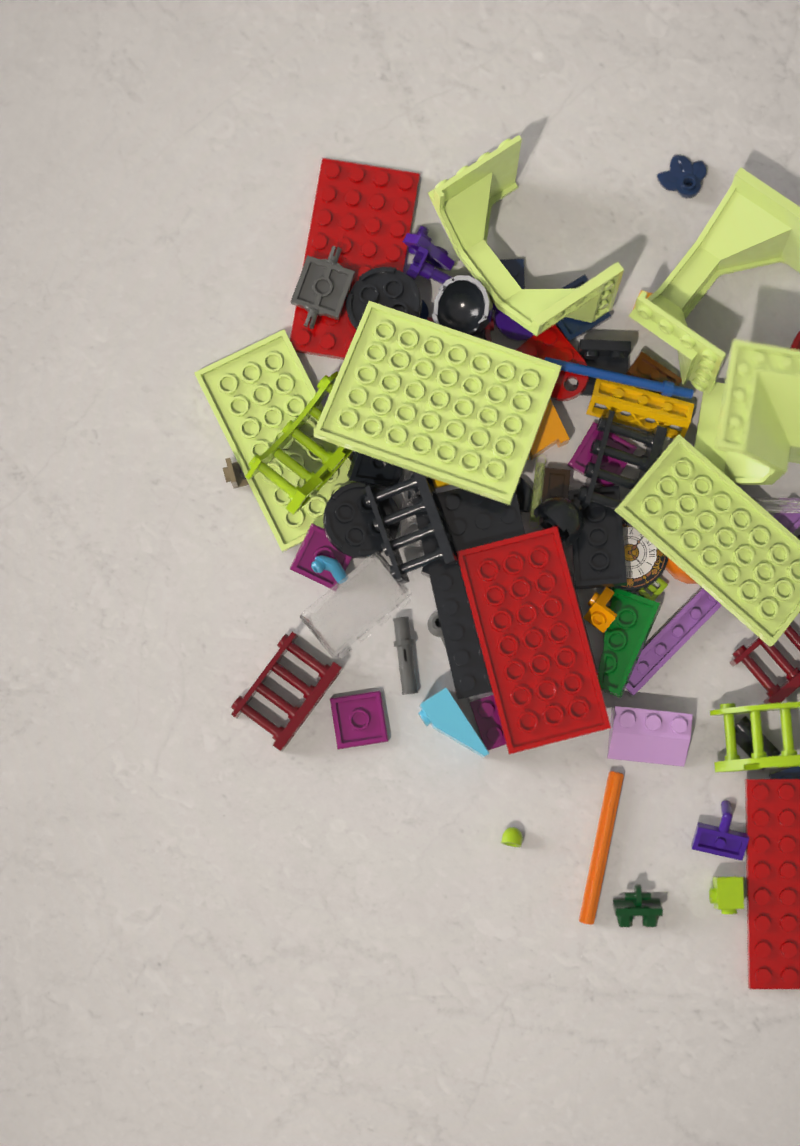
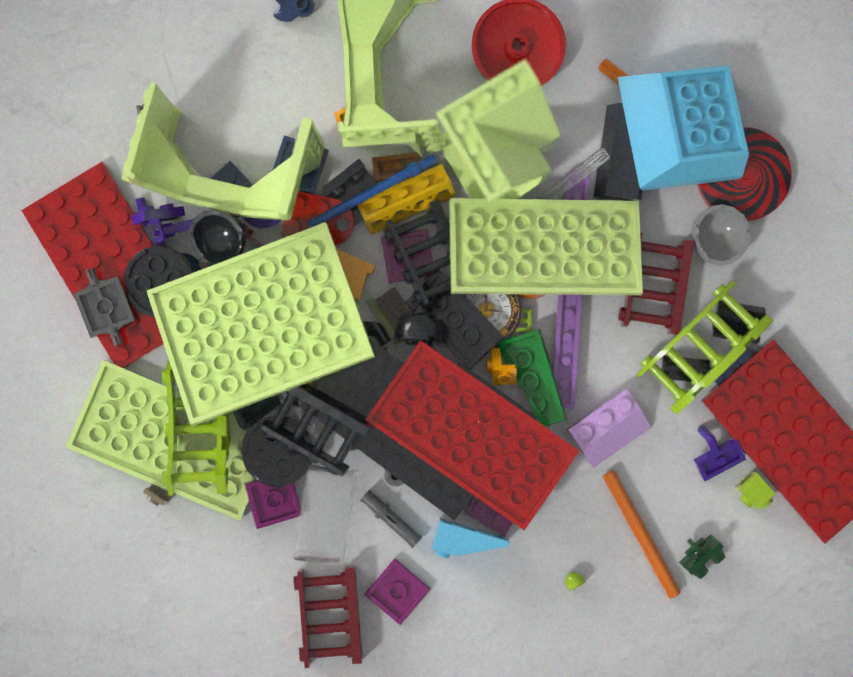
camera: 45 degrees left, 5 degrees up
(326, 563) = (284, 501): dark azure arm -> none

